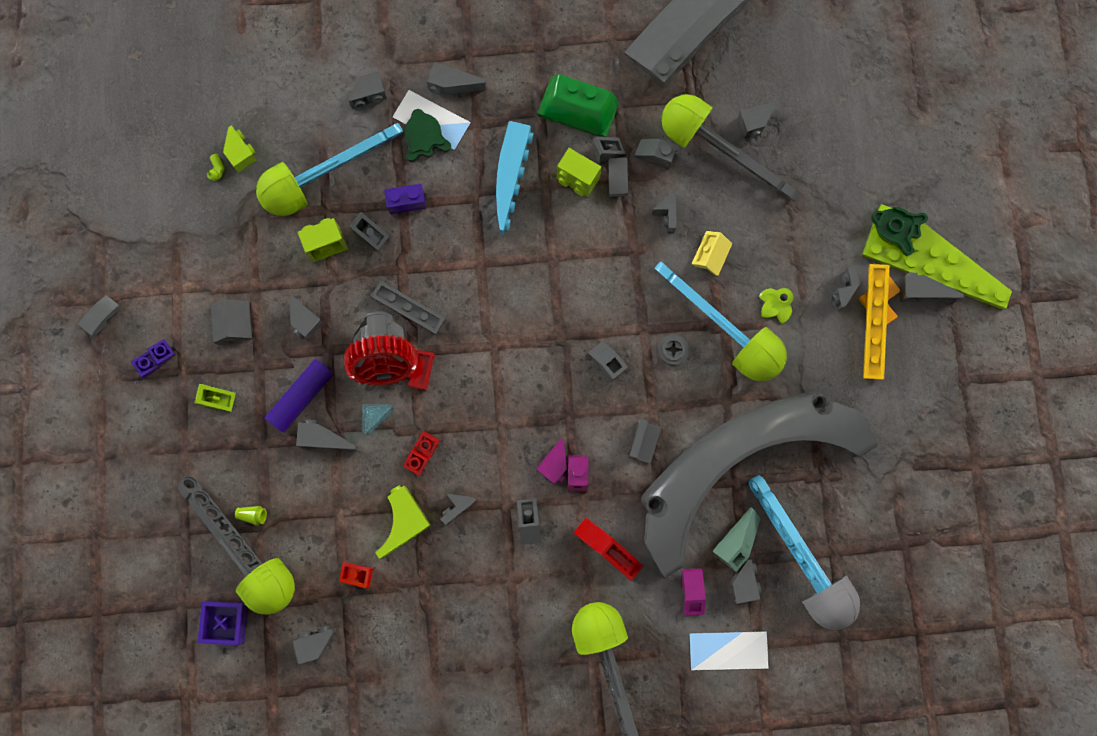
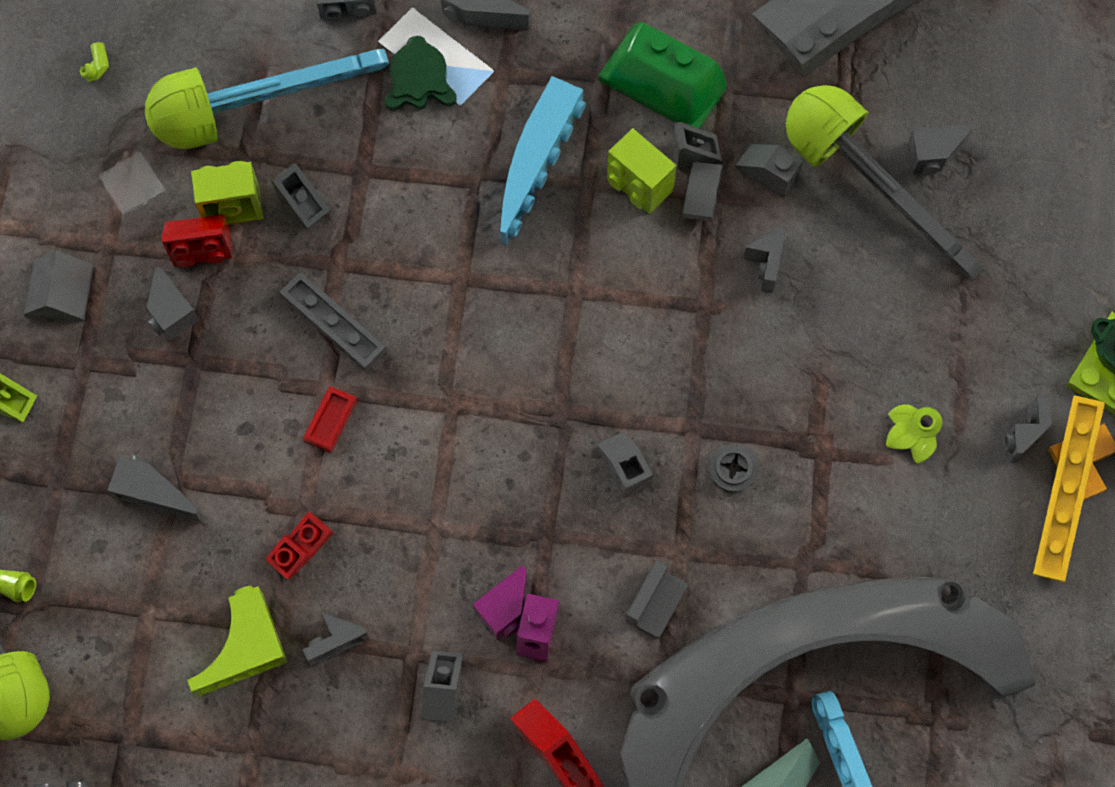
camera: 15 degrees right, 10 degrees down
(237, 151) = (133, 44): lime slope -> none
(259, 243) = (132, 184): none -> clear piece
(299, 395) = (132, 417): dark purple brick -> none
(311, 273) = (197, 240): none -> red slope
(356, 574) = (151, 711): red slope -> none
(374, 415) = (240, 471): clear light blue slope -> none
(379, 352) = (271, 375): red piece -> none
(405, 198) = (367, 160): dark purple brick -> none
(712, 252) = (827, 332): light yellow panel -> none
(761, 356) = (868, 499): lime piece -> none

